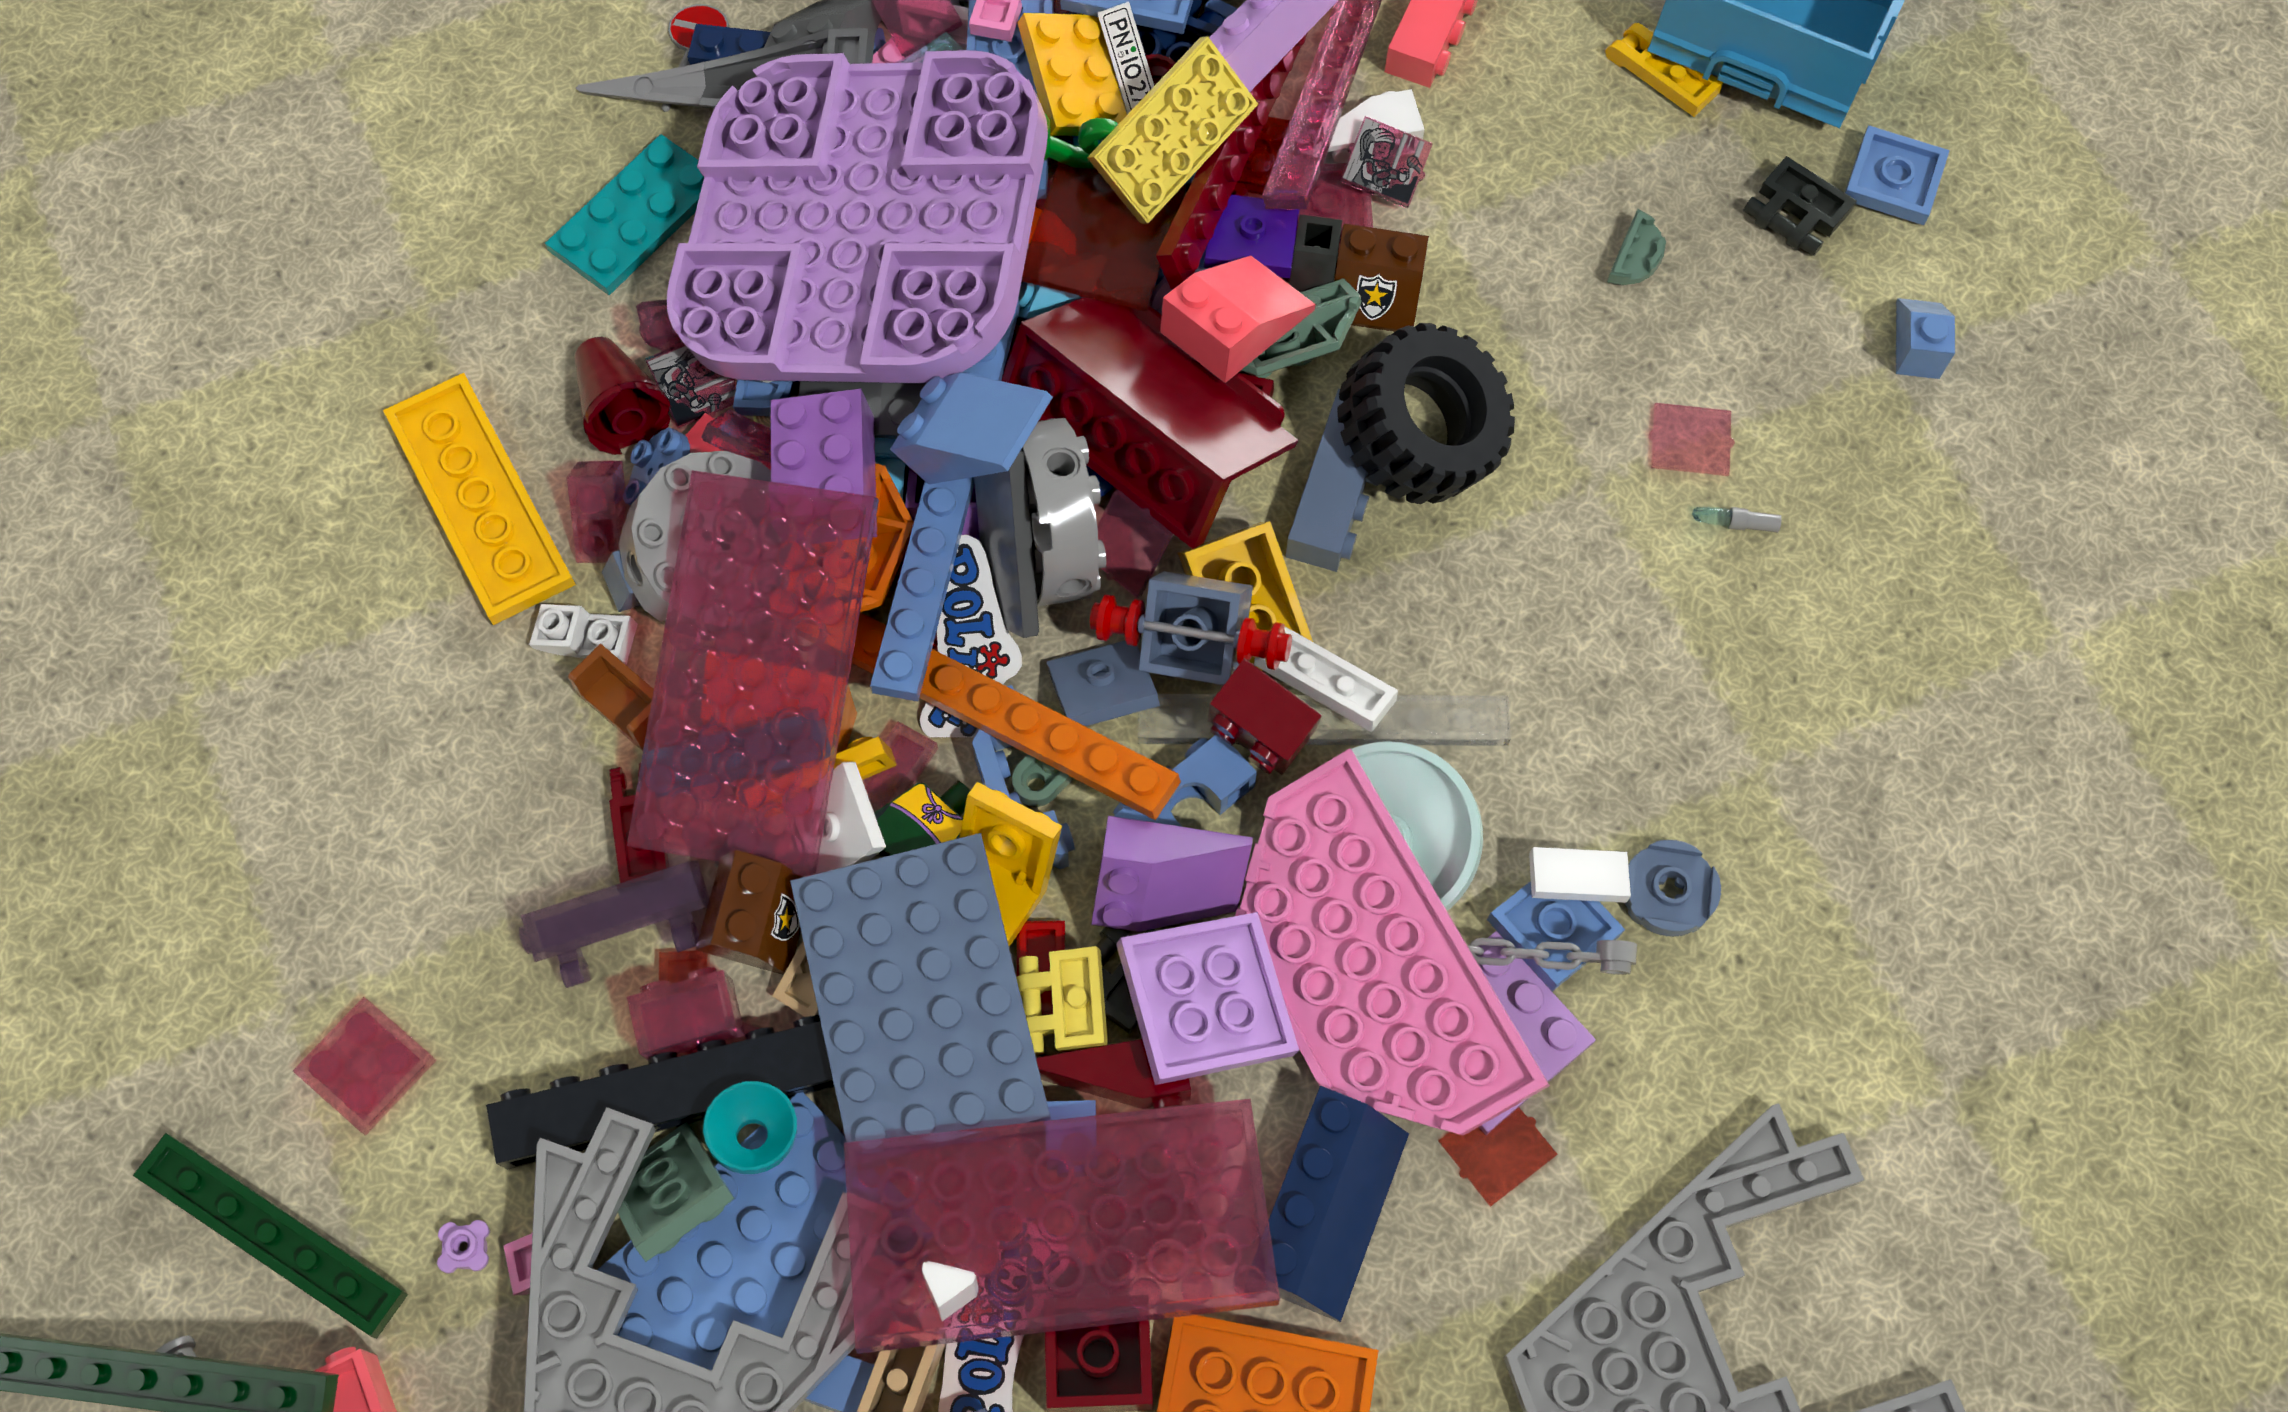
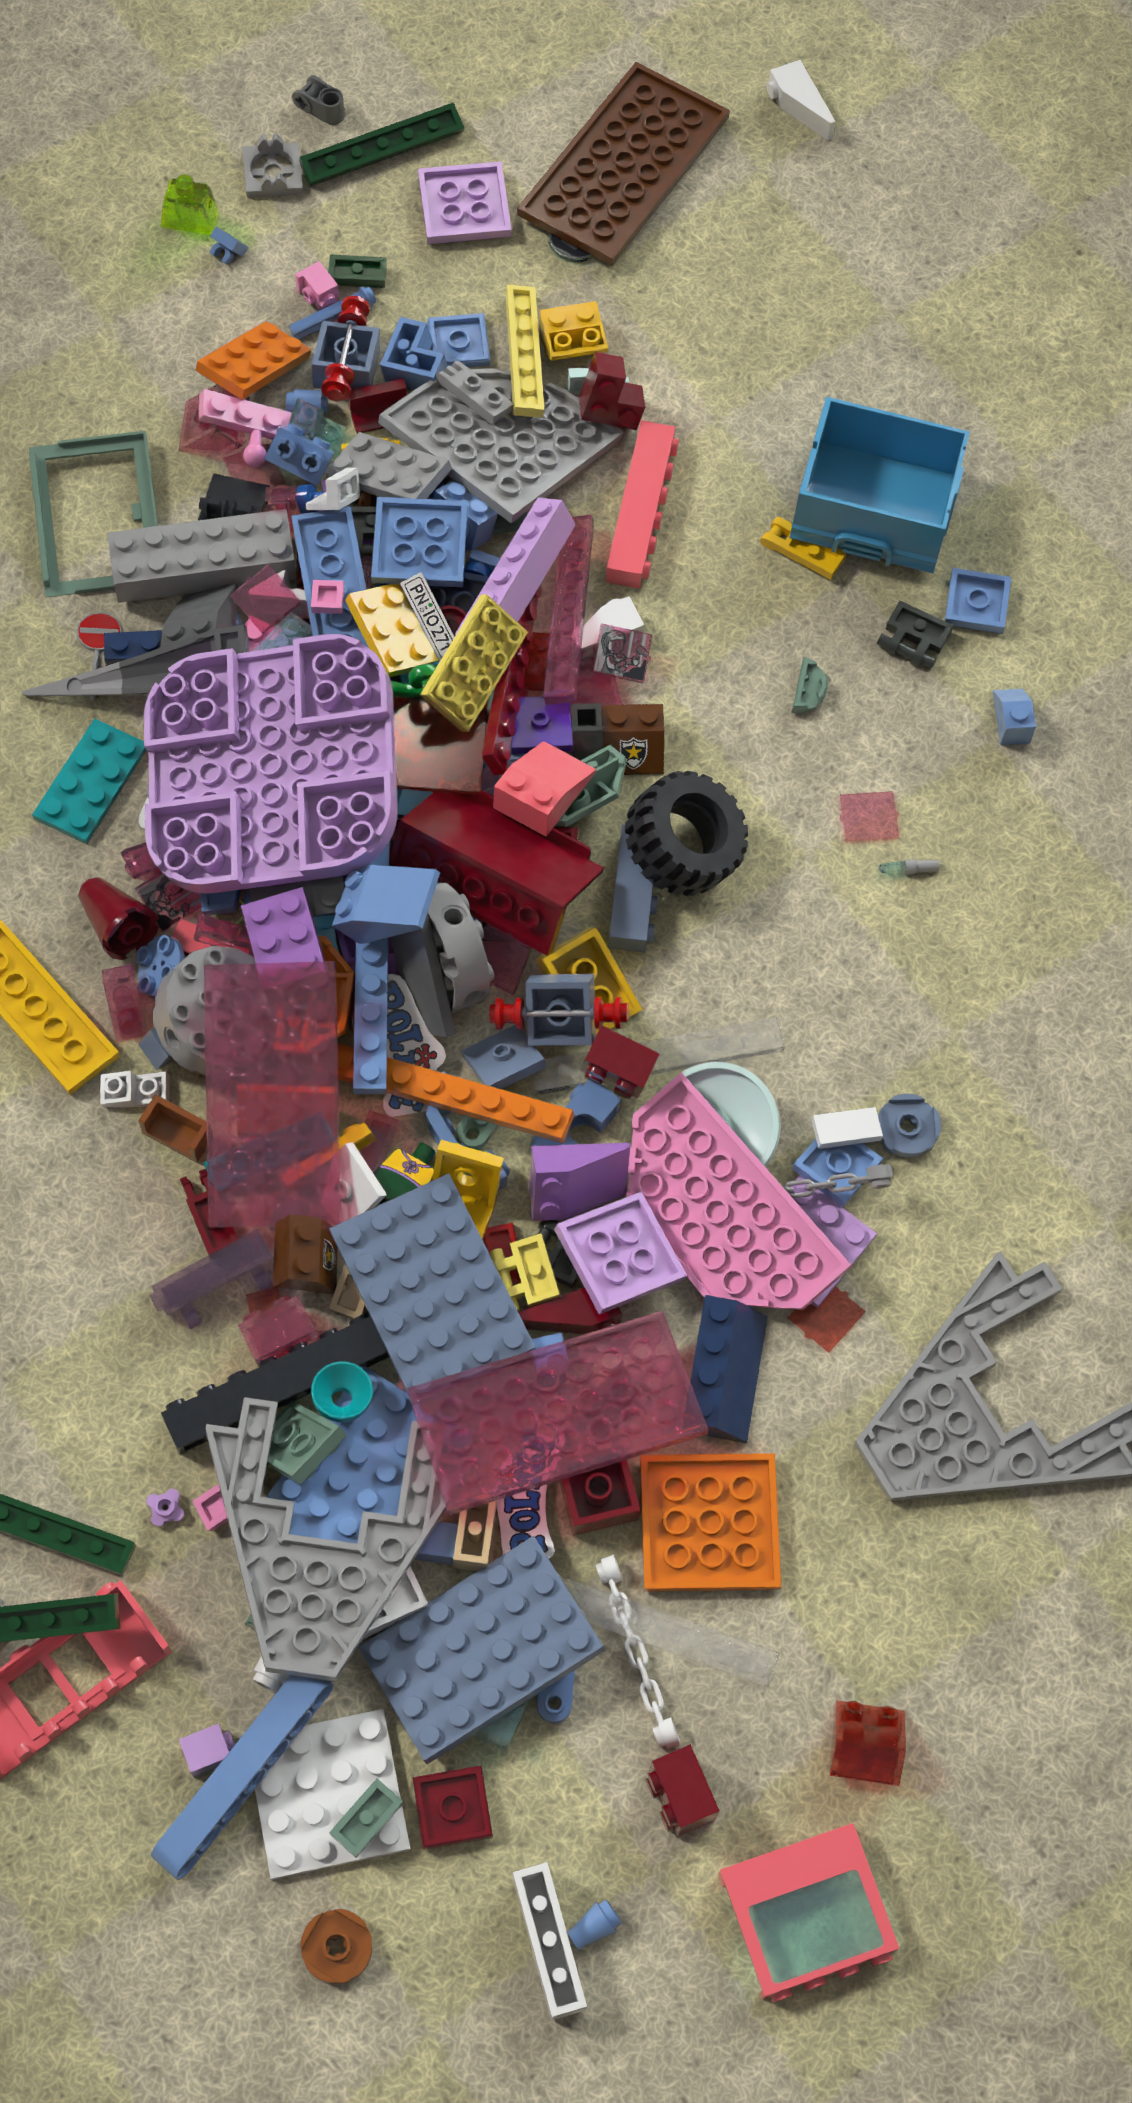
camera: 15 degrees left, 0 degrees up
(364, 1066) = (65, 1406): clear pink plate -> none
(949, 1287) = (499, 1460): white slope -> none
(1334, 682) = (661, 1030): white plate -> none

